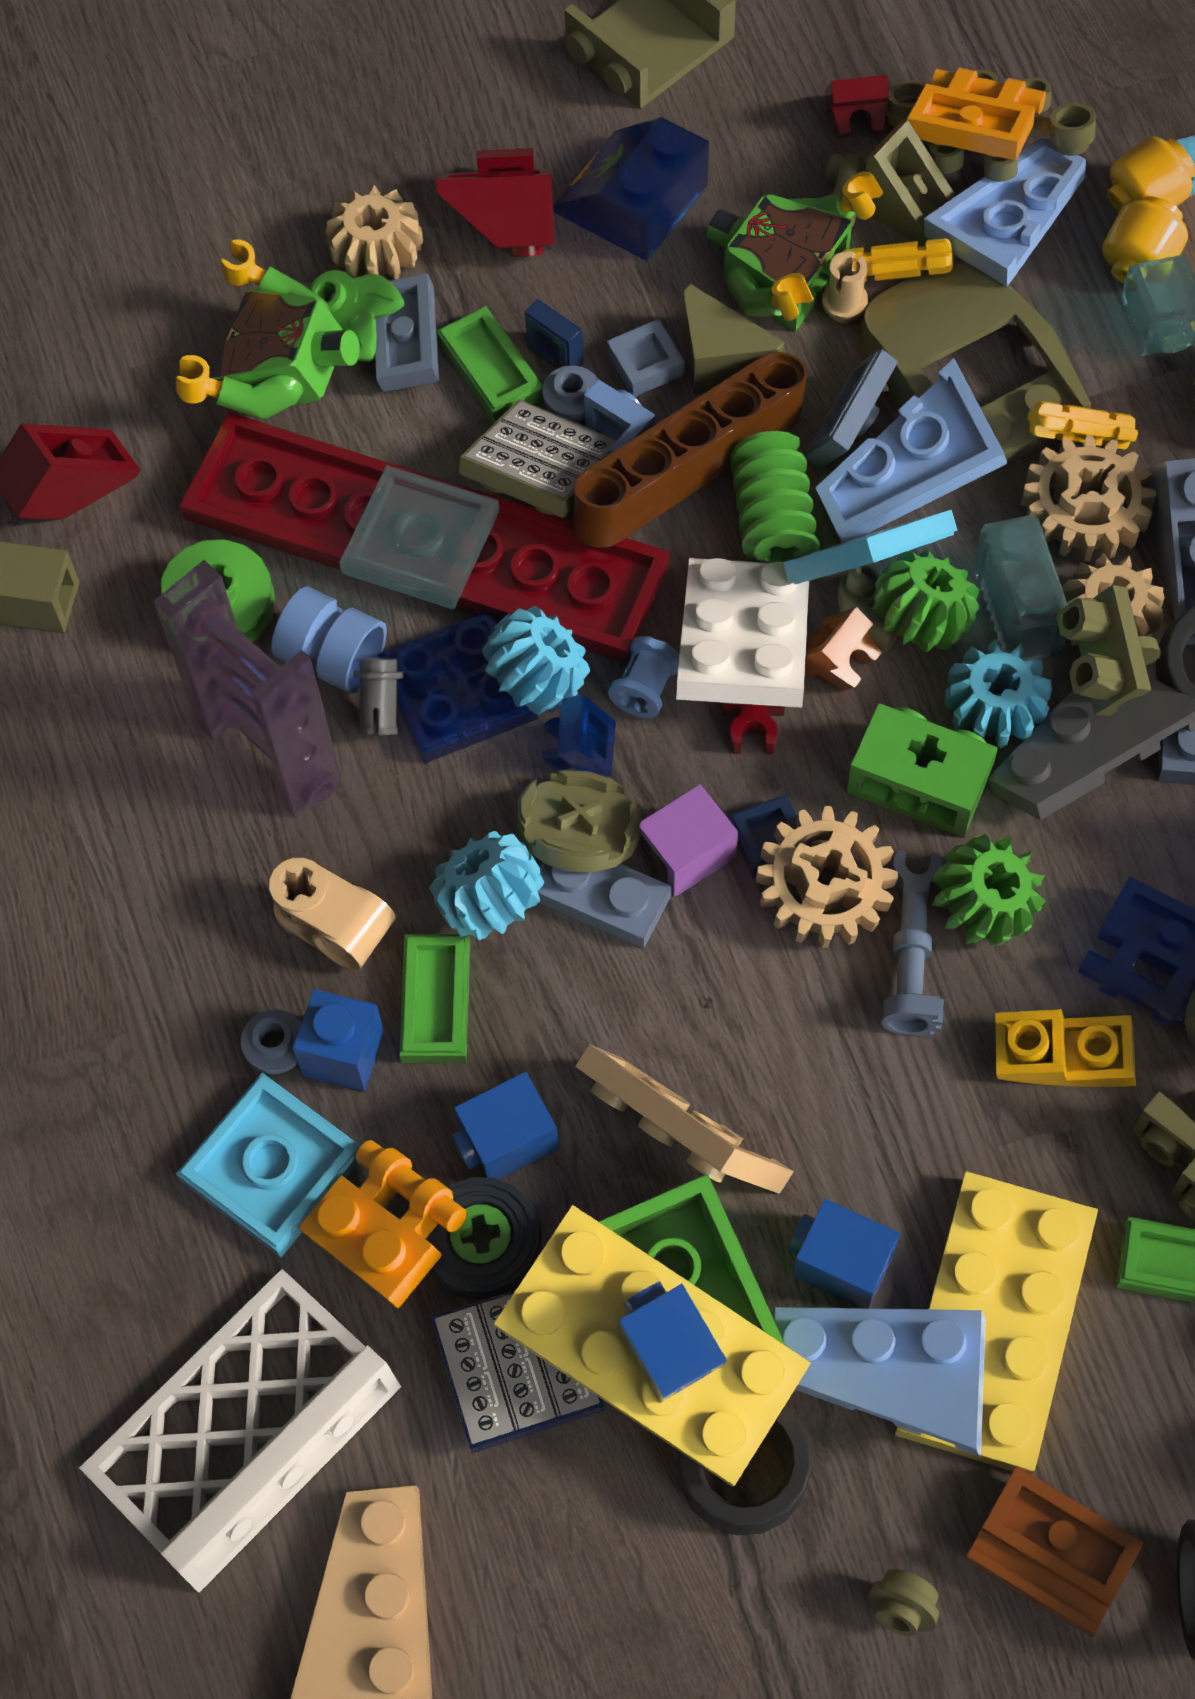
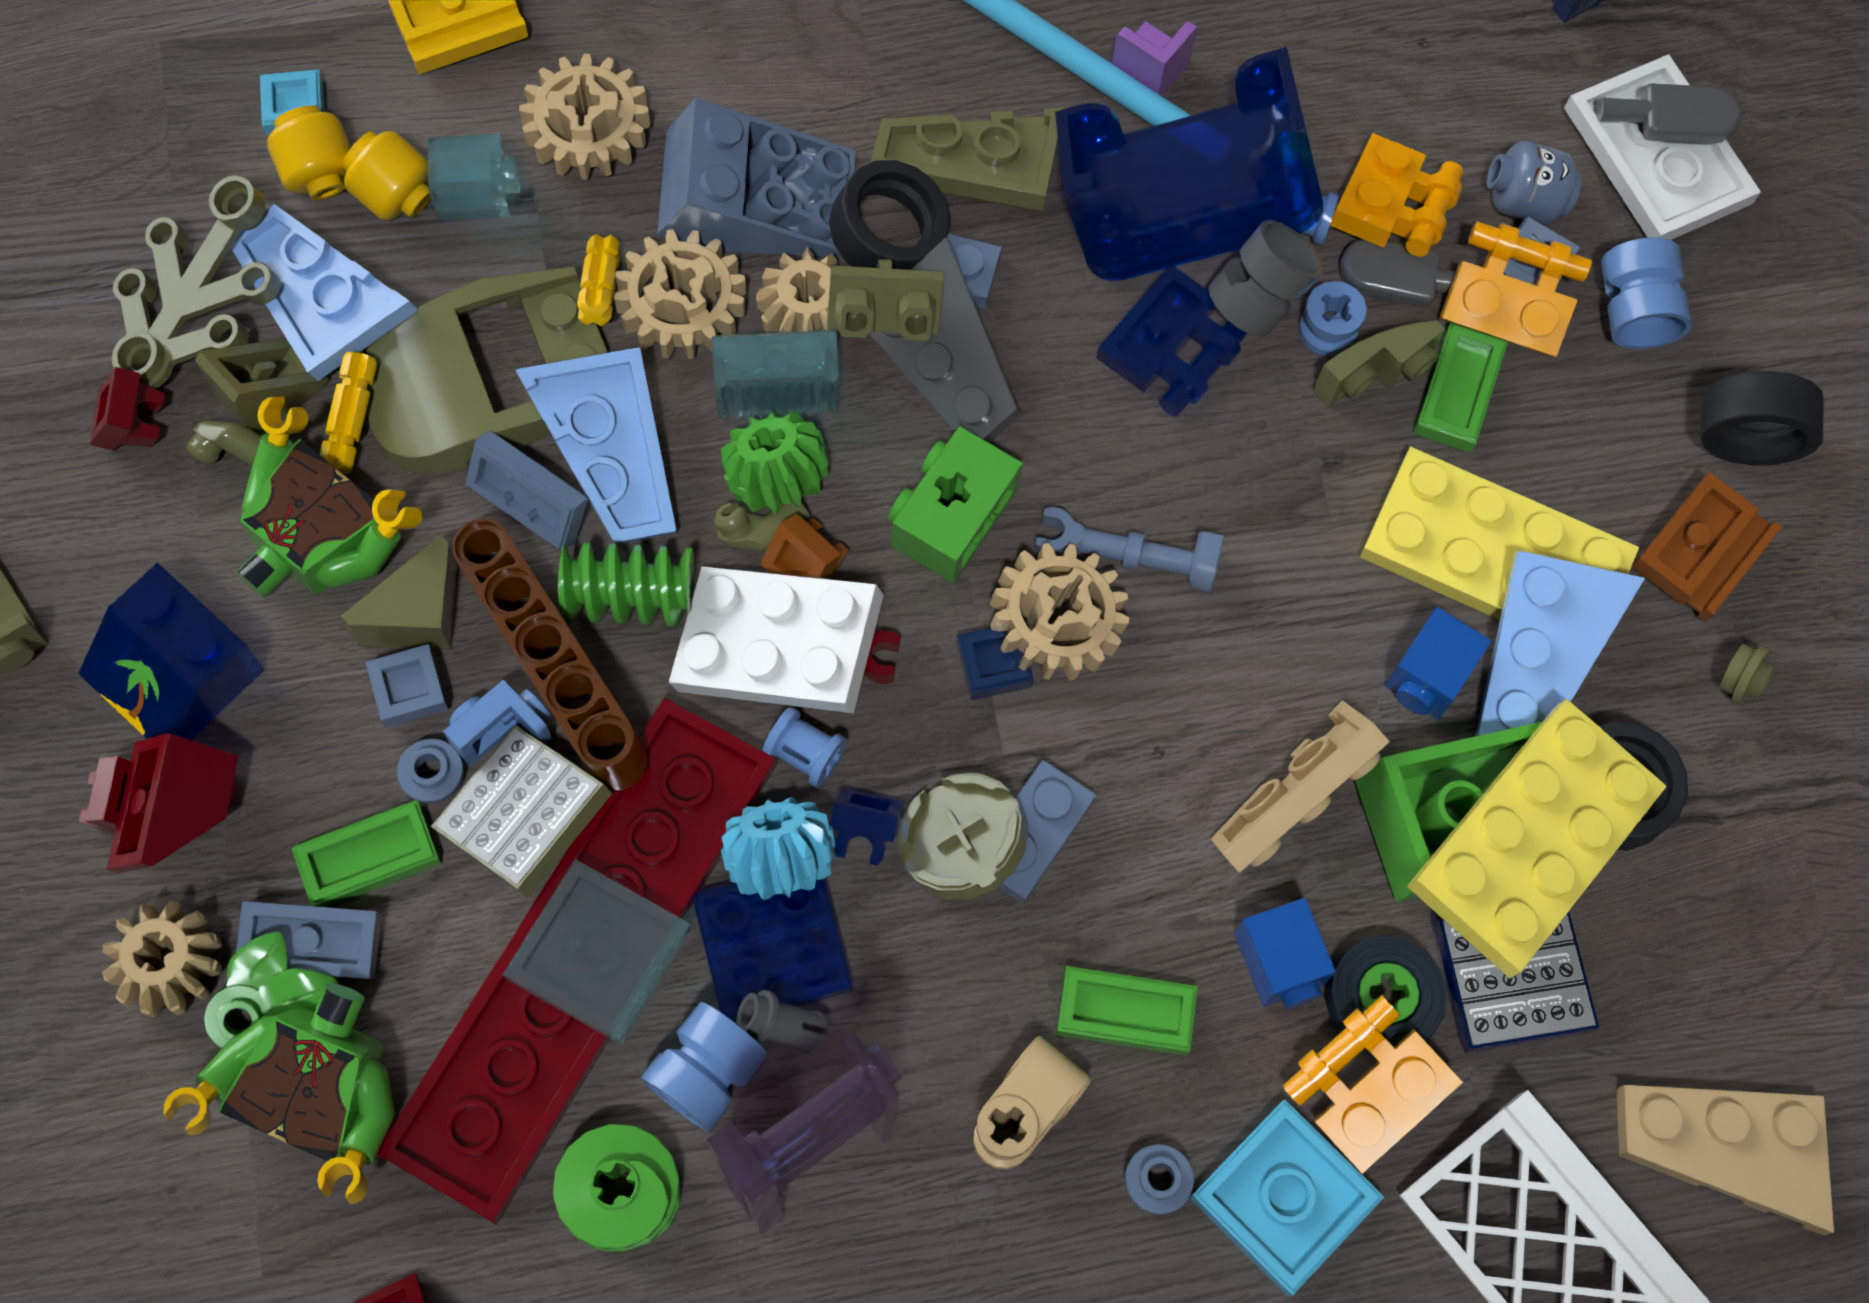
camera: 90 degrees left, 5 degrees up
(339, 1040) = (1176, 1106): blue brick -> none
(487, 885) = (1030, 958): medium azure gear -> none
(553, 336) = (359, 777): dark blue tile -> none
(669, 1339) = (1568, 804): blue brick -> none
(690, 838) = (999, 728): medium lavender panel -> none
(845, 296) = (373, 465): tan pin -> none
(870, 547) = (721, 493): medium azure tile -> none
(976, 113) = (209, 293): light orange plate -> none
(988, 890) = (1097, 469): bright green gear -> none
(1018, 682) = (881, 400): medium azure gear -> none
(1065, 1052) = (1252, 441): yellow slope -> none

